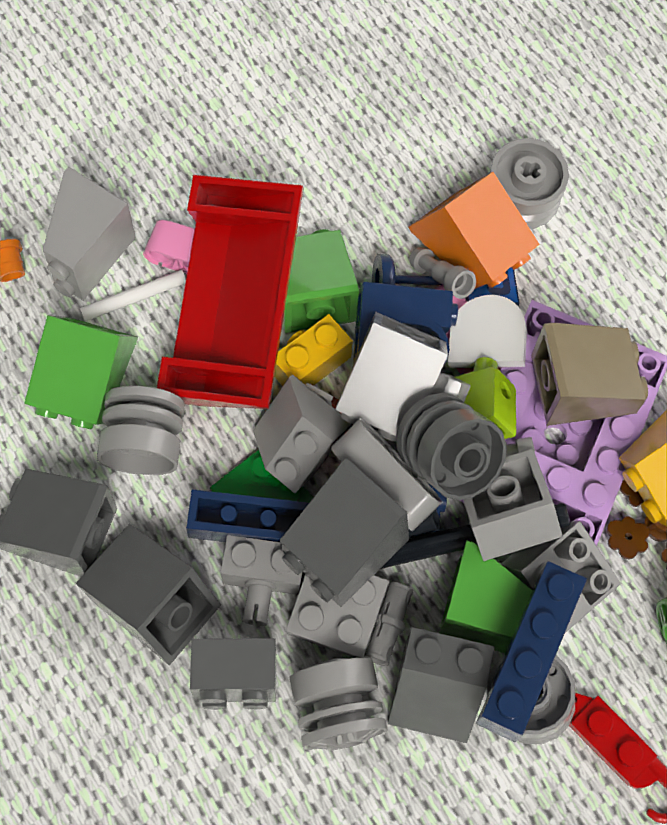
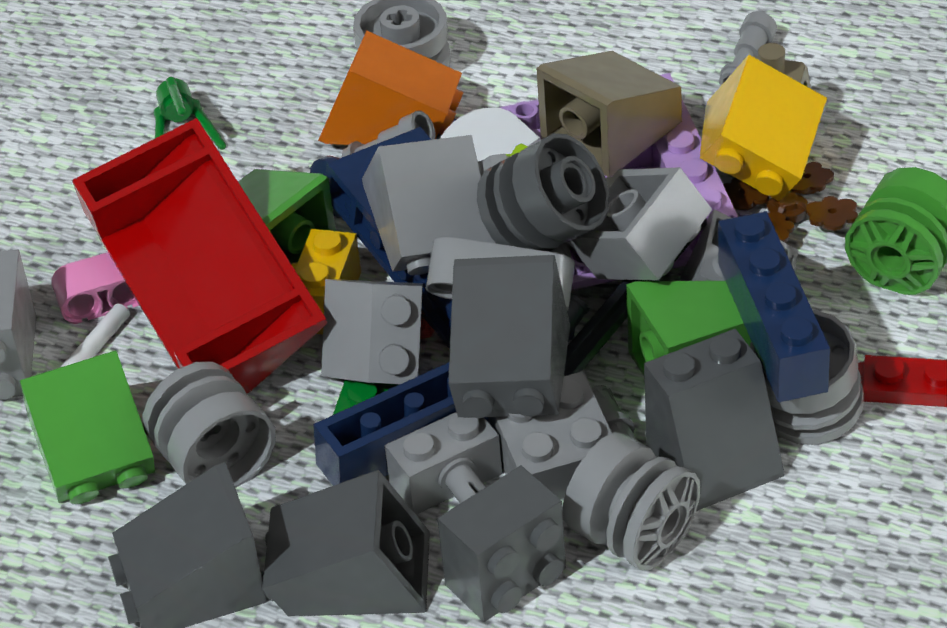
camera: 30 degrees left, 25 degrees down
(344, 125) = (177, 105): none -> green plant

